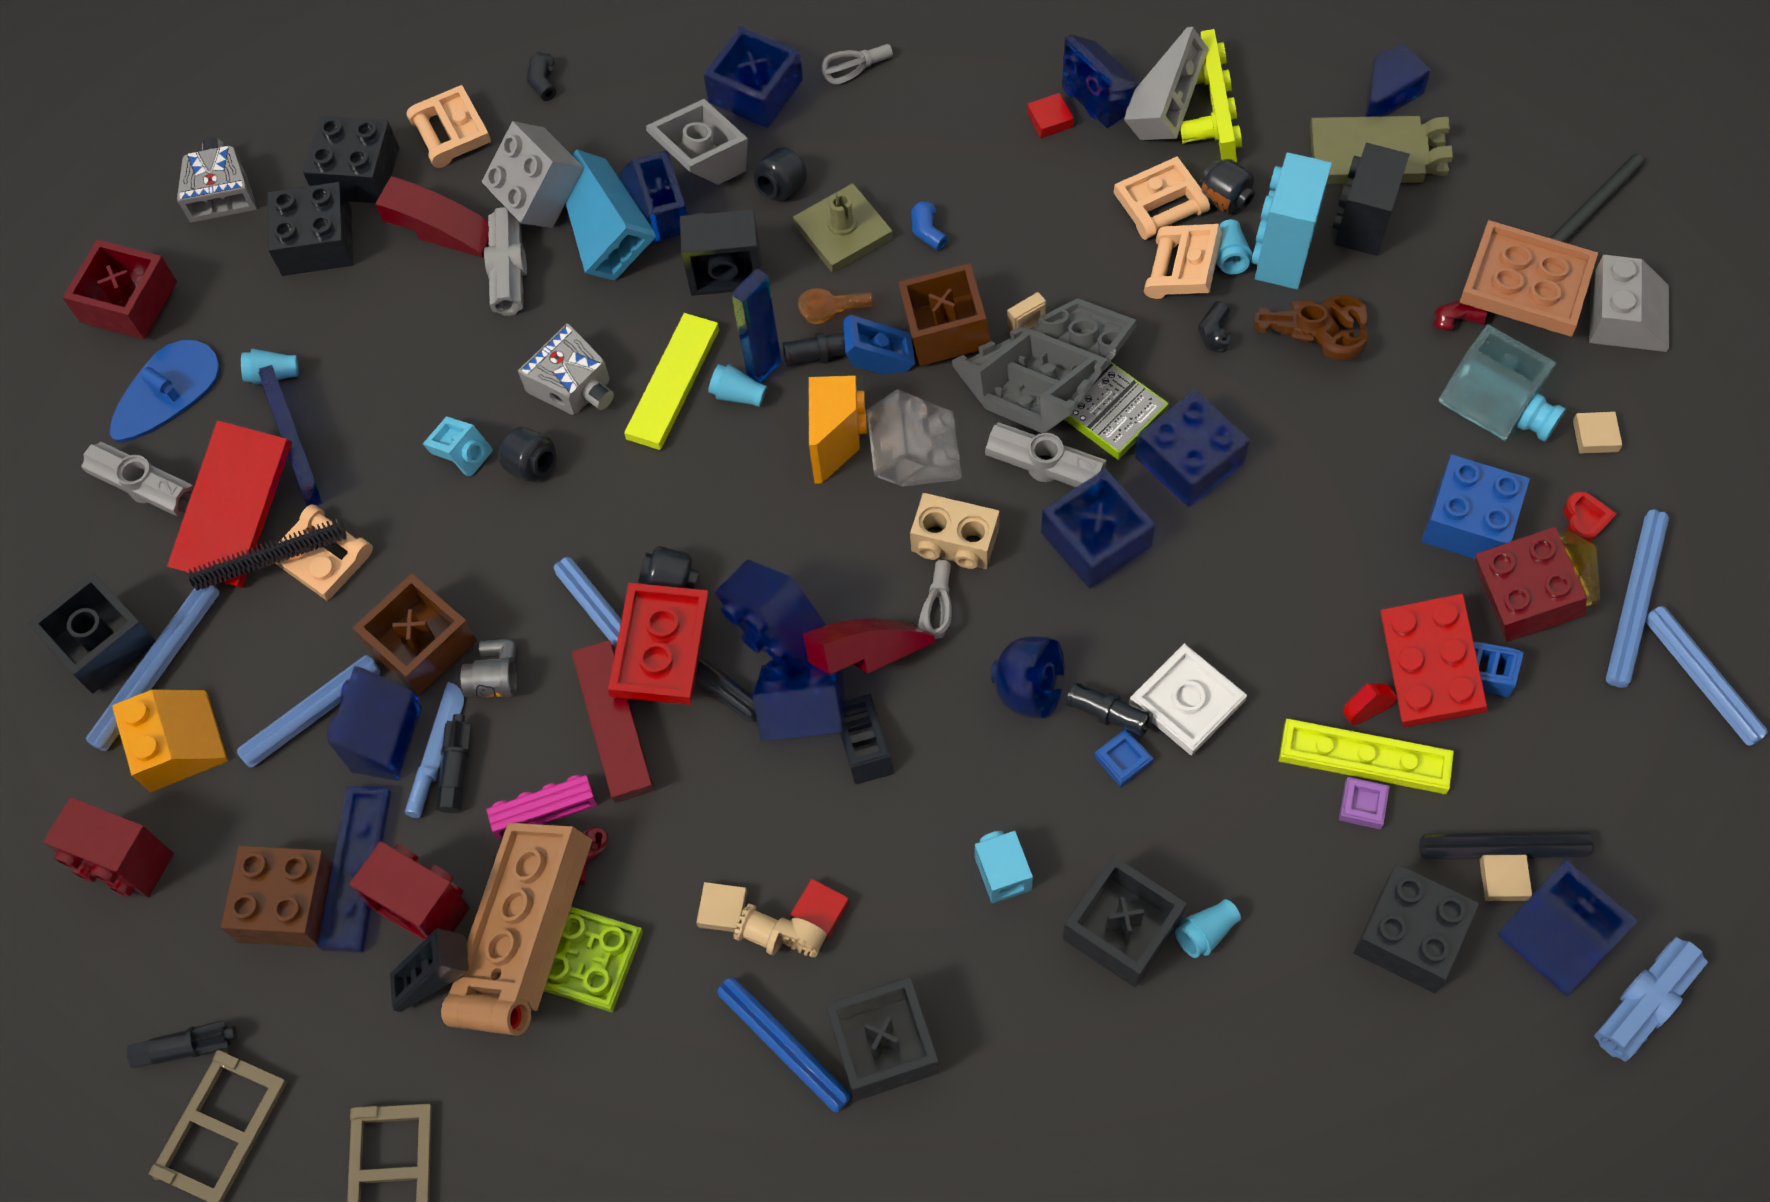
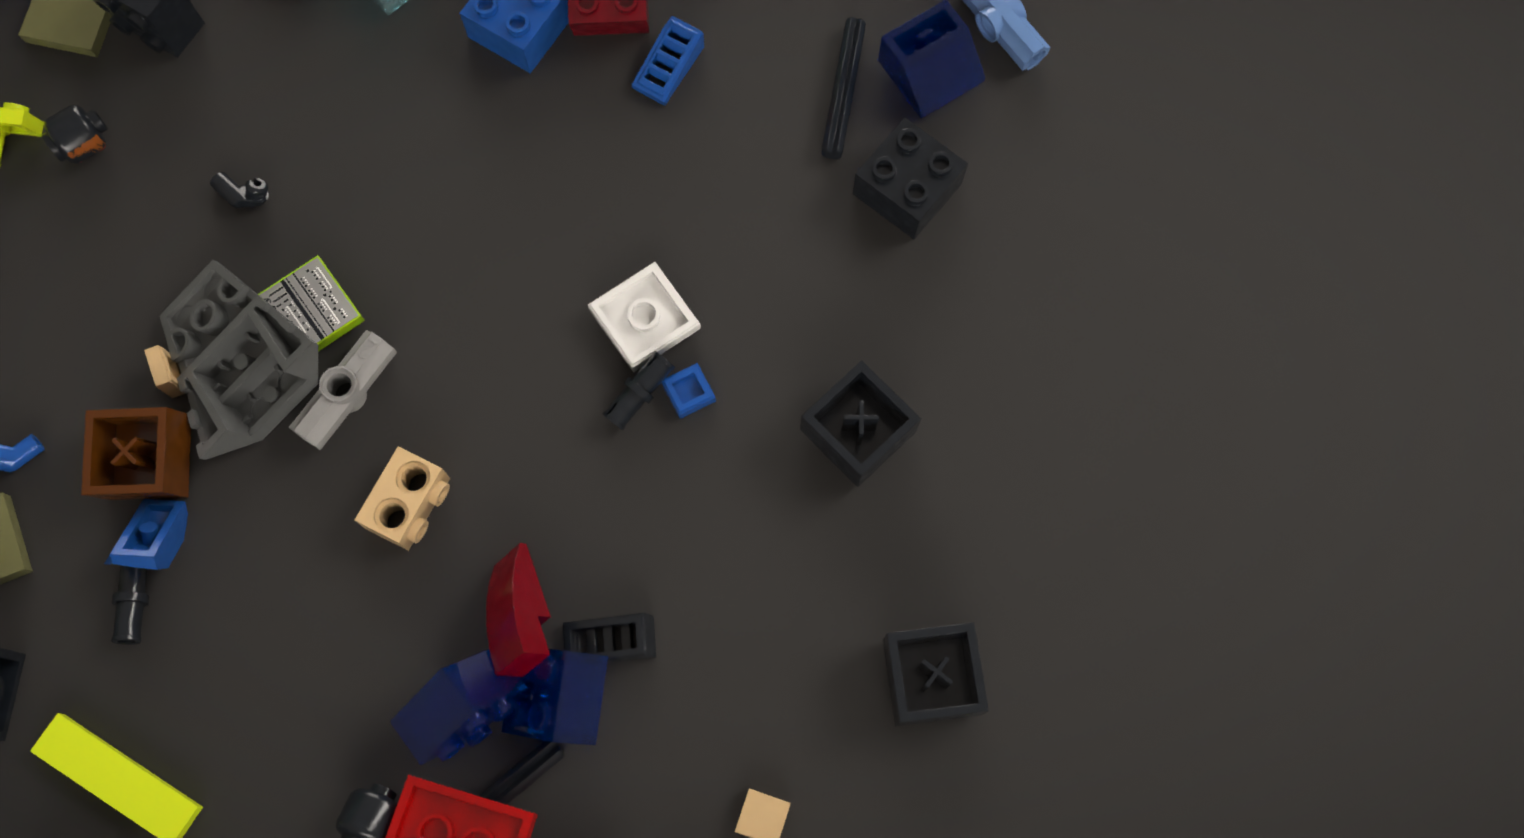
camera: 85 degrees left, 10 degrees up
(735, 386) = (151, 704): medium azure cone -> none
(757, 326) = (95, 659): clear blue tile -> none
(772, 932) = (801, 770): tan connector -> none
(784, 1044) = (914, 776): blue axle -> none
(819, 305) = (74, 592): clear orange plate -> none
(821, 907) = (783, 716): red tile -> none
(835, 423) = (237, 598): light orange slope -> none
(913, 441) = (282, 521): clear slope -> none
(939, 589) = (464, 528): light grey piece -> none
(1003, 865) = (778, 526): medium azure brick -> none
(1028, 675) = (587, 459): clear blue cylinder -> none
(1097, 528) = (442, 355): clear blue brick -> none
(1157, 187) = (49, 204): light nougat plate -> none
(1191, 448) = (375, 245): clear blue brick -> none
(1193, 262) = (153, 187): light nougat plate -> none
(1204, 930) = (875, 352): medium azure cone -> none
(1234, 252) = (153, 150): medium azure cone -> none
(1289, 219) = (148, 77): medium azure brick -> none
(1318, 324) = (269, 96): reddish brown animal -> none
(1364, 803) = (779, 191): medium lavender tile -> none
(1366, 756) = (734, 178): neon yellow tile -> none
(1369, 702) = (686, 160): red tile -> none
(1433, 661) = (658, 93): red plate -> none
(1505, 878) = (872, 96): tan tile -> none

